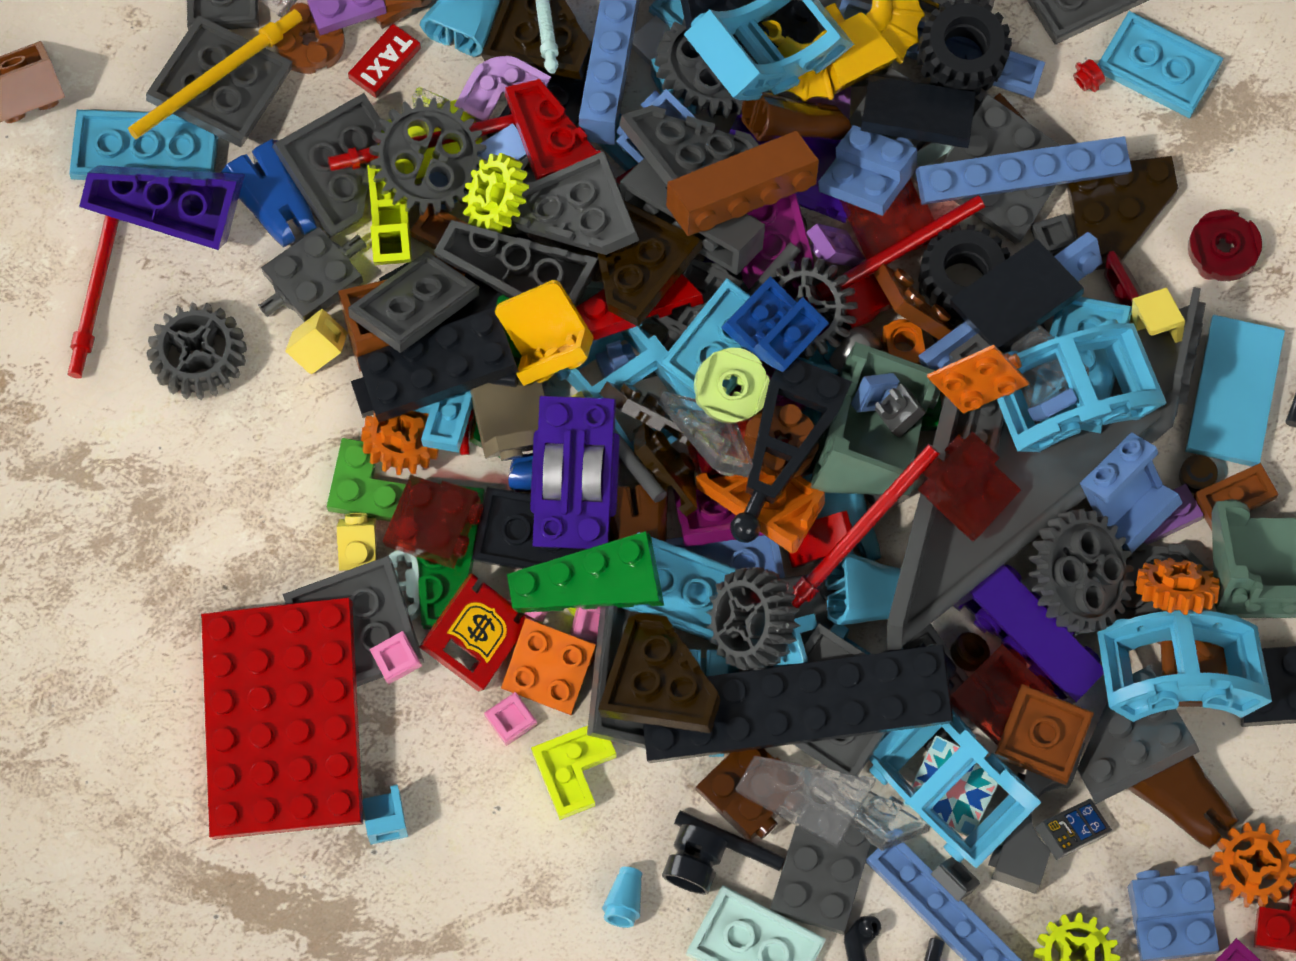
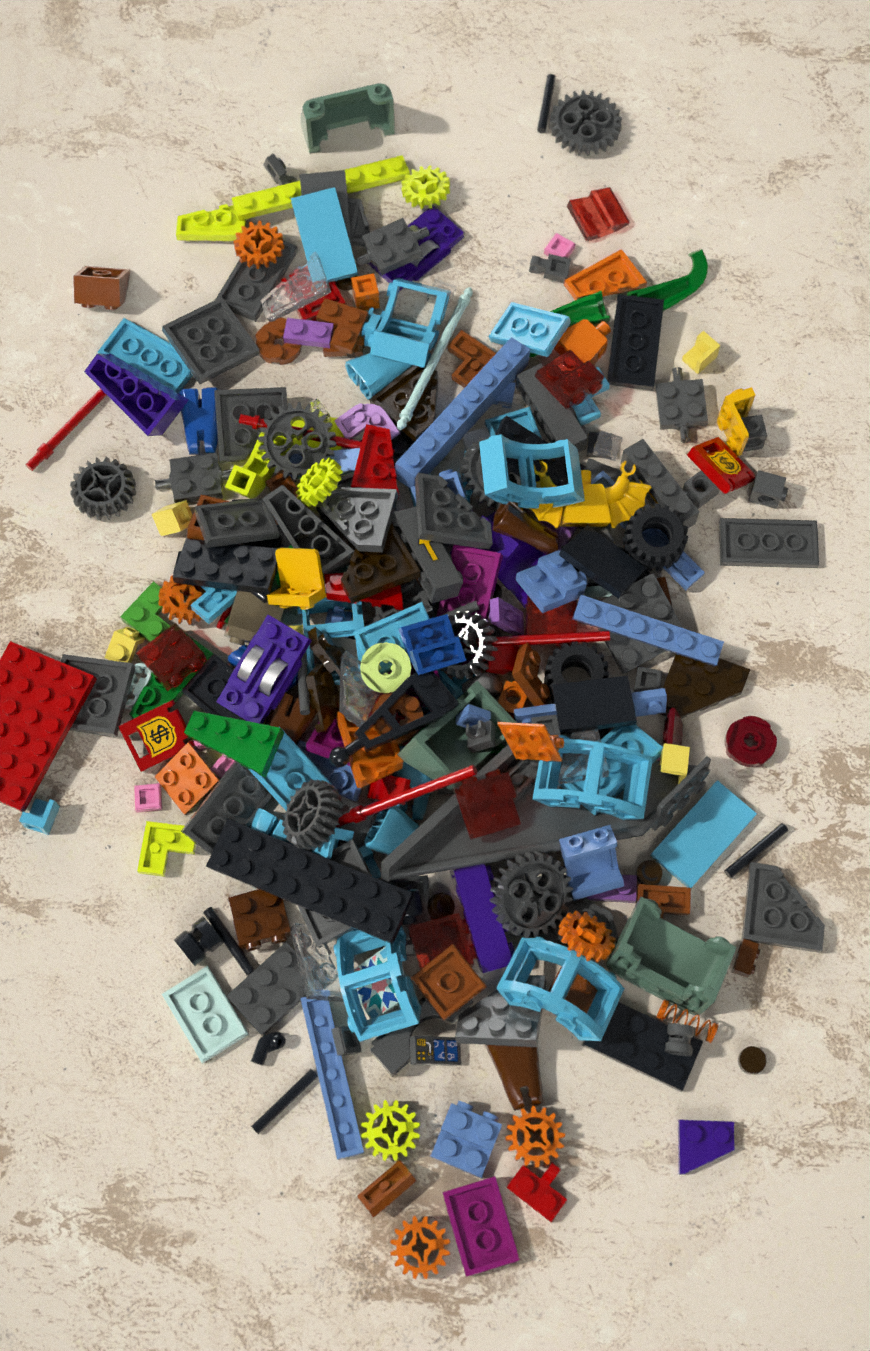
camera: 30 degrees right, 0 degrees up
(268, 36) = (254, 328): yellow bar -> none
(384, 60) = (313, 375): red tile -> none
(395, 657) = (99, 725): bright pink tile -> none
(624, 898) = (145, 941): medium azure cone -> none
(658, 679) = (236, 820): dark brown plate -> none
(742, 183) = (461, 549): dark orange brick -> none
(806, 796) = (281, 940): clear wing -> none
(1052, 405) = (570, 782): medium blue tile -> none
(1088, 75) = (727, 594): red plate -> none
(1159, 64) = (777, 609): medium azure tile -> none

